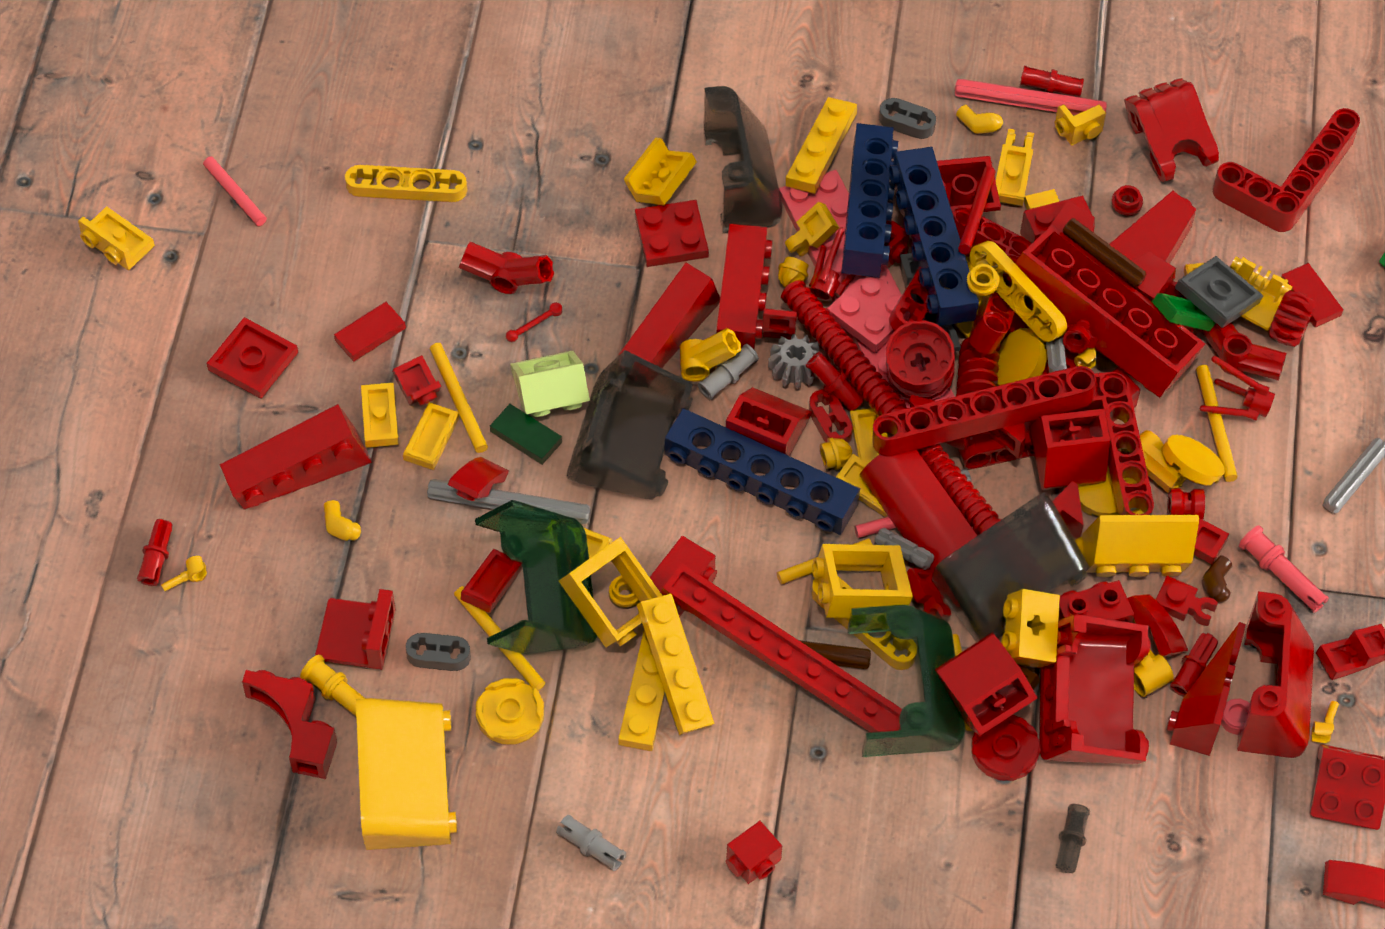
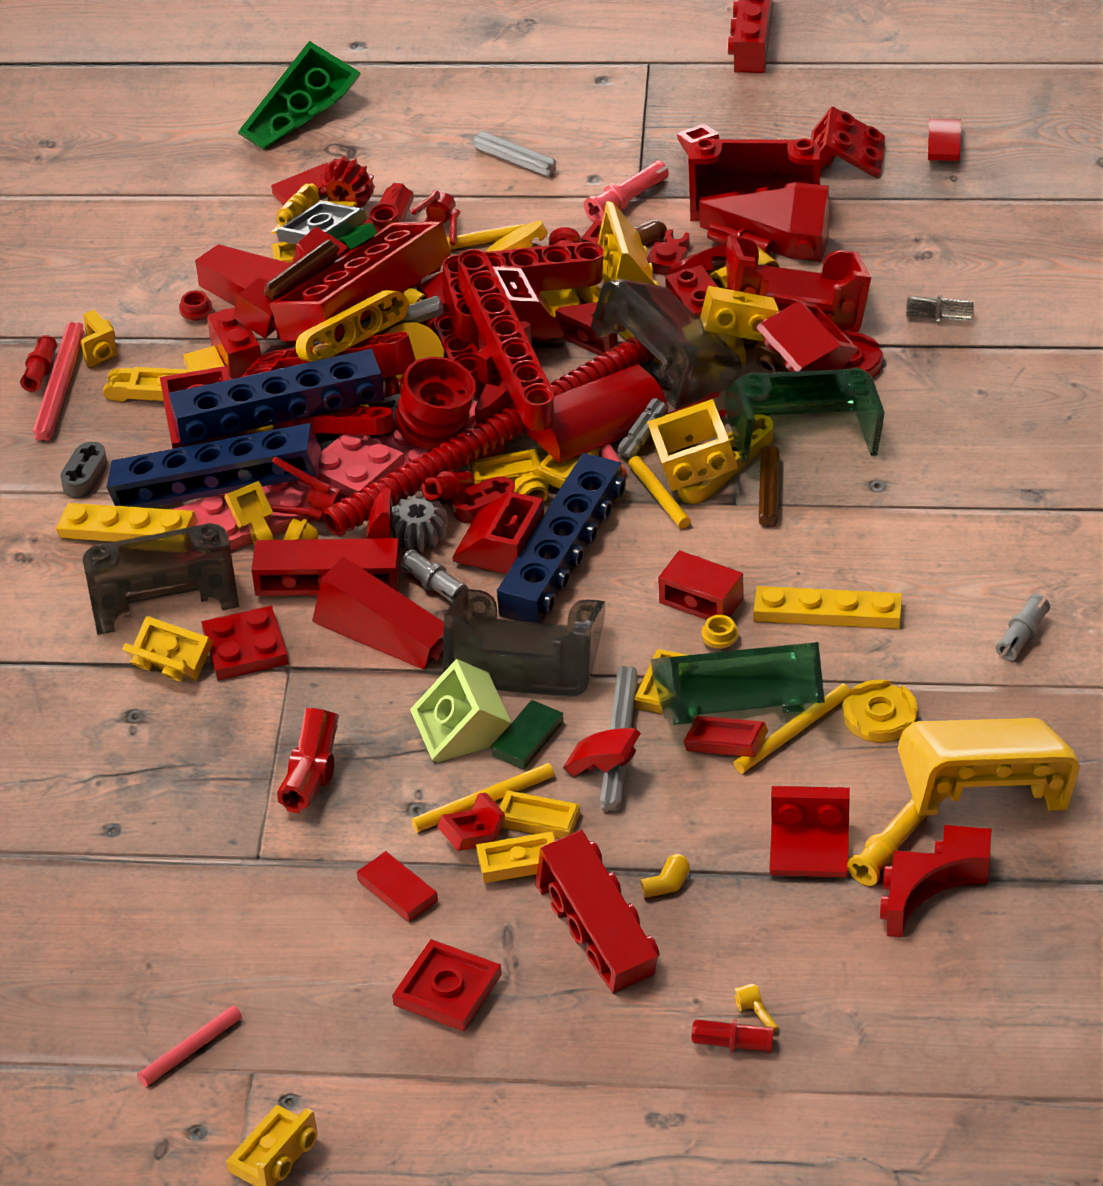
camera: 90 degrees left, 15 degrees down
(406, 178) = (173, 879): yellow beam -> none
(438, 651) = (825, 773): dark grey beam -> none
(555, 310) = (353, 731): red hinge -> none
(633, 575) = (742, 612): yellow window -> none
(675, 664) = (813, 569): yellow plate -> none
(700, 355) = (420, 579): yellow piece -> none
(753, 853) = (1007, 508): red brick -> none
(782, 651) = (783, 496): red plate -> none
(976, 210) = (246, 363): red bar -> none
(979, 123) = (92, 415): yellow arm -> none
(983, 272) = (345, 342): yellow plate -> none
(1077, 344) = (403, 286): red plate -> none
(1172, 124) = (107, 266): red piece -> none
(1284, 205) = (194, 198): red beam -> none

